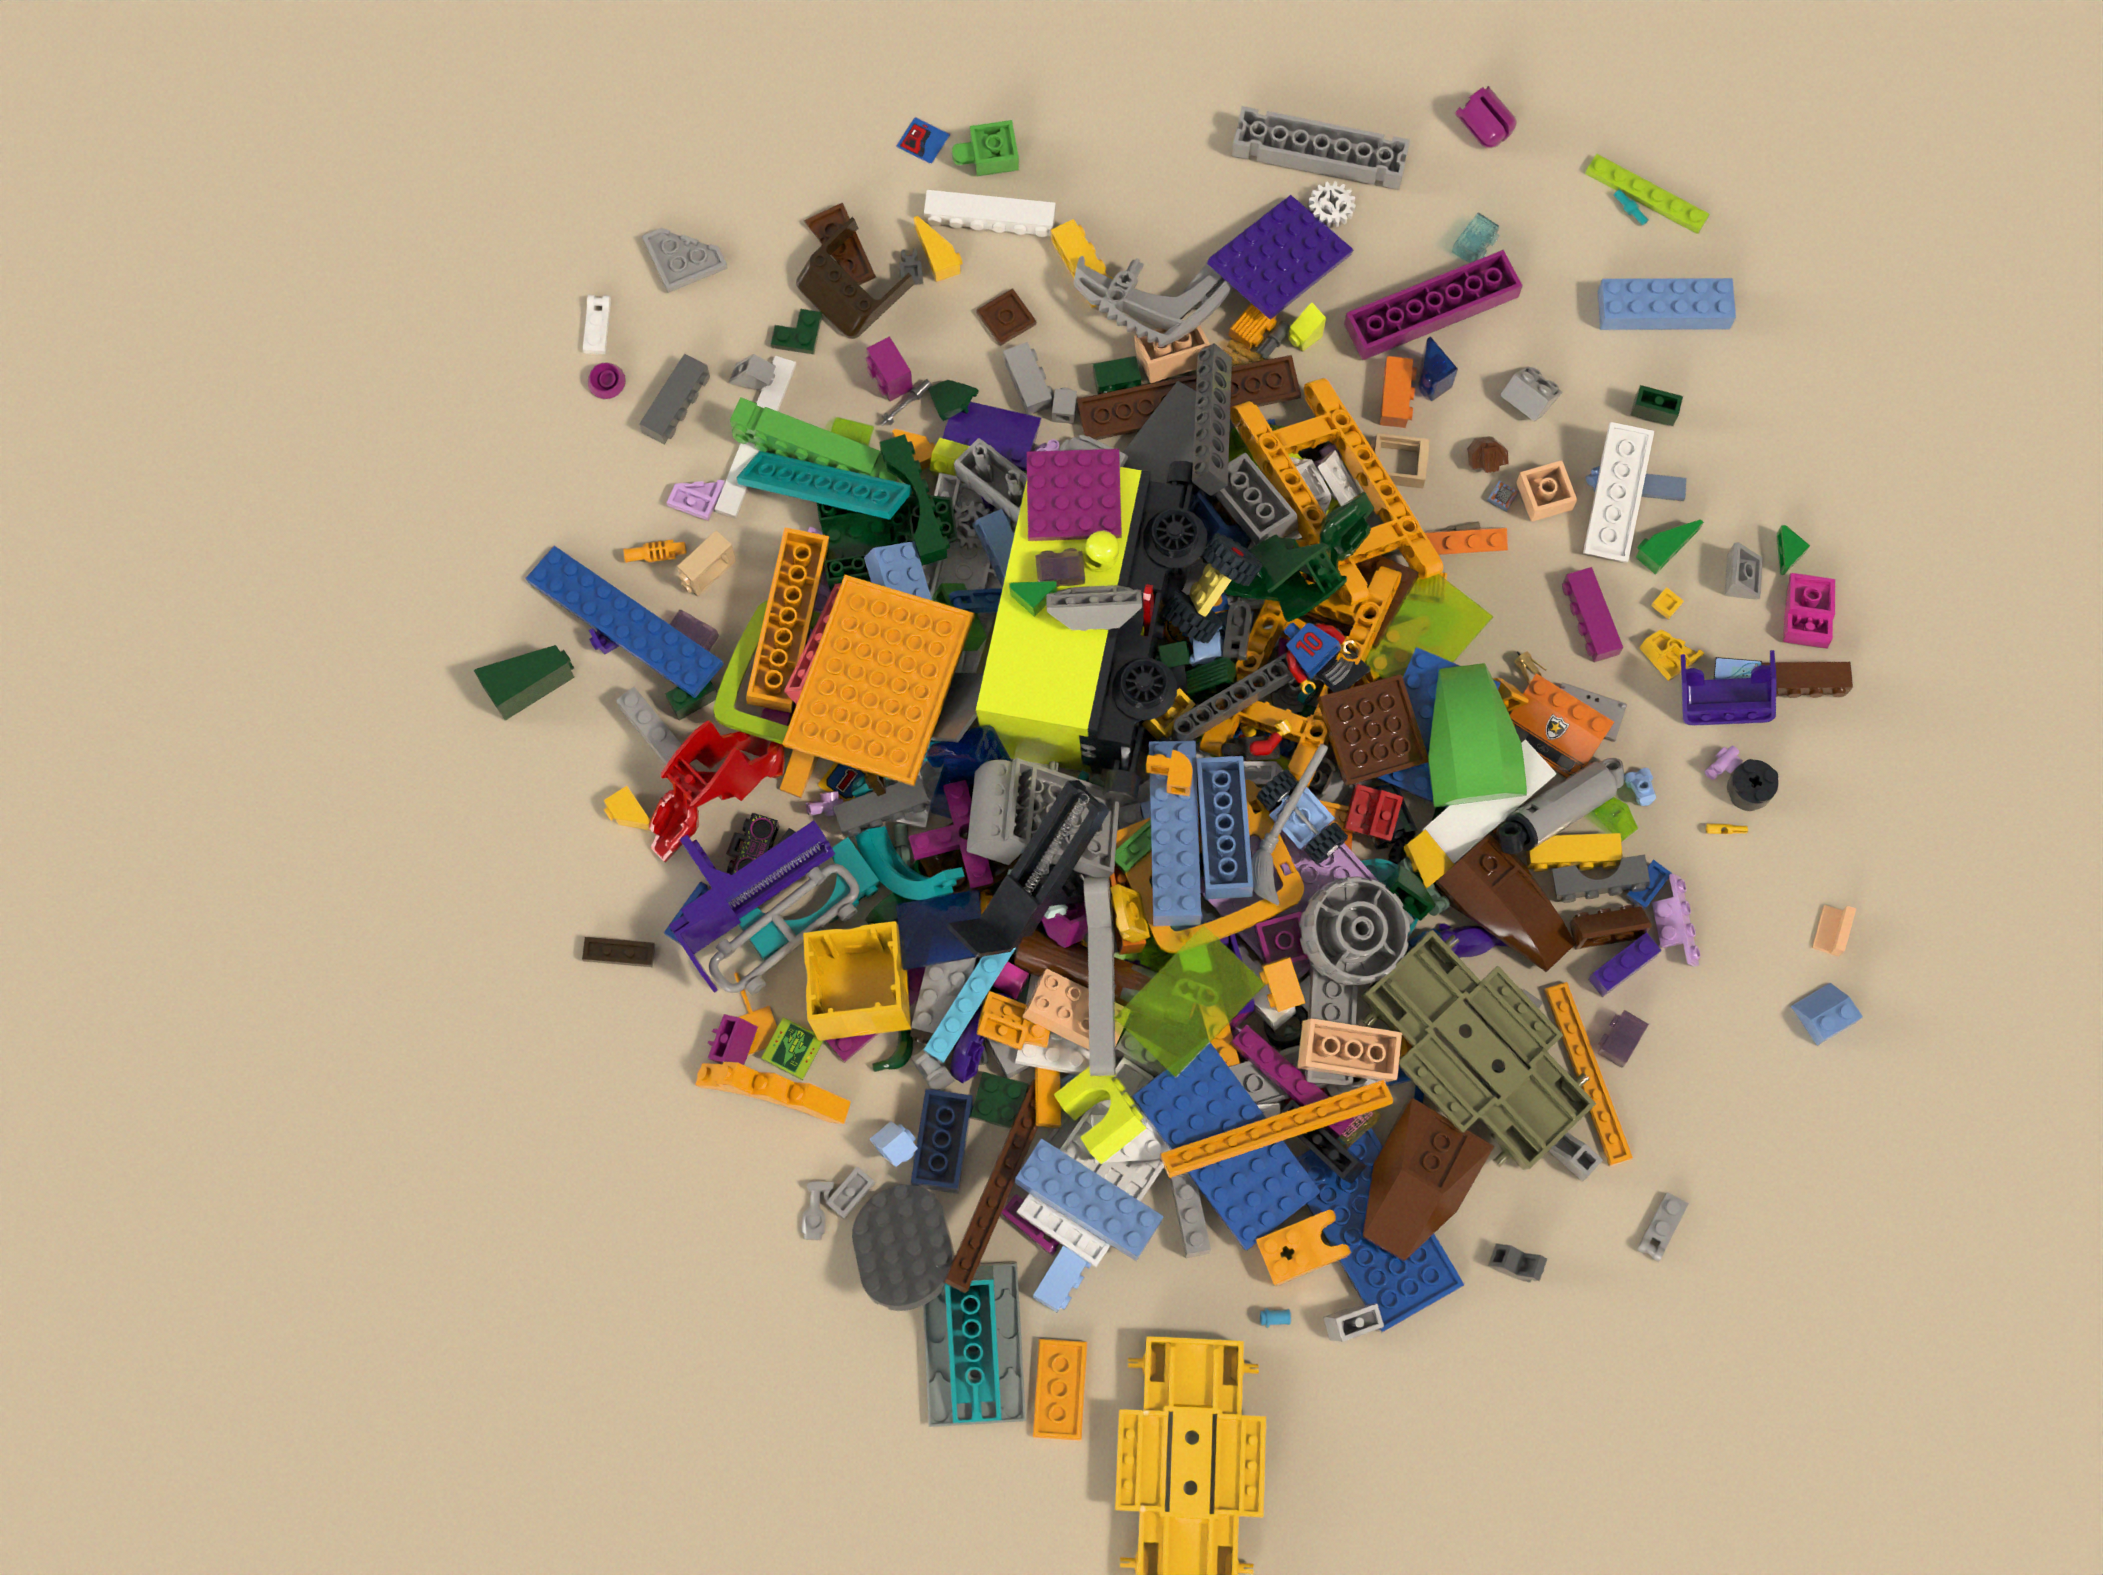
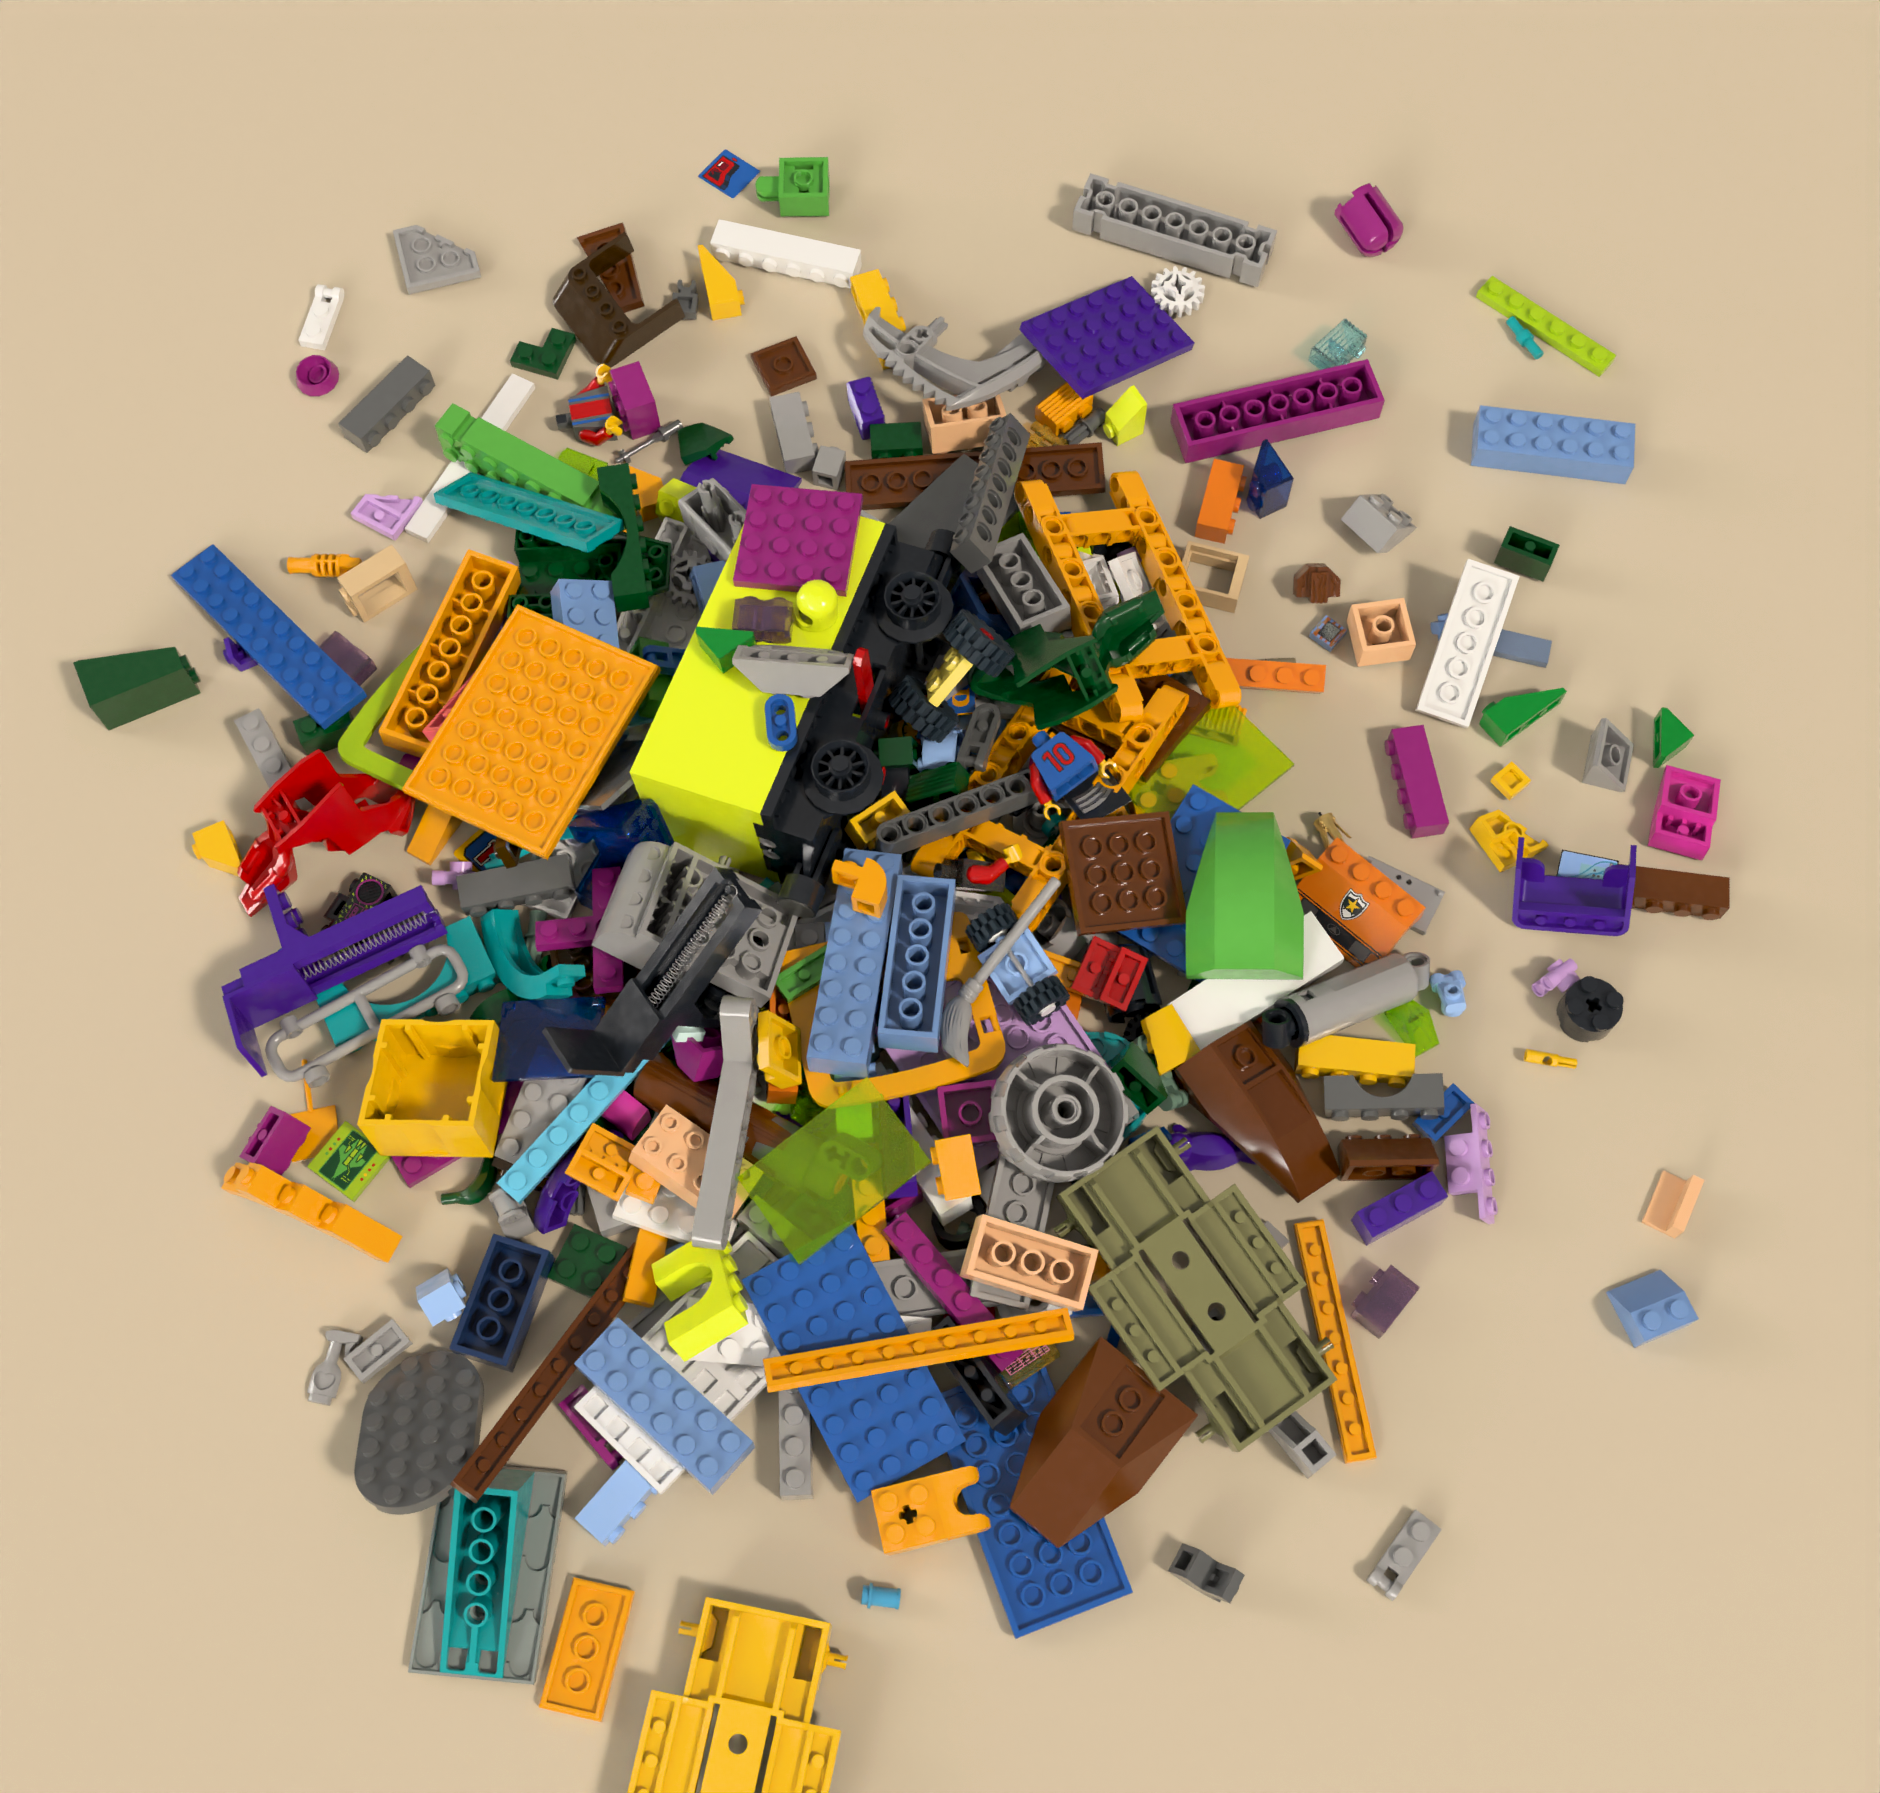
camera: 10 degrees right, 5 degrees down
(618, 952) = (169, 1014): dark brown plate -> none
(753, 373) = (481, 386): light grey slope -> none
(853, 383) = (592, 412): none -> torso
(1084, 346) = (864, 405): none -> dark purple brick
(1091, 654) = (781, 724): none -> blue plate
(1353, 1322) = (979, 1620): light grey slope -> none

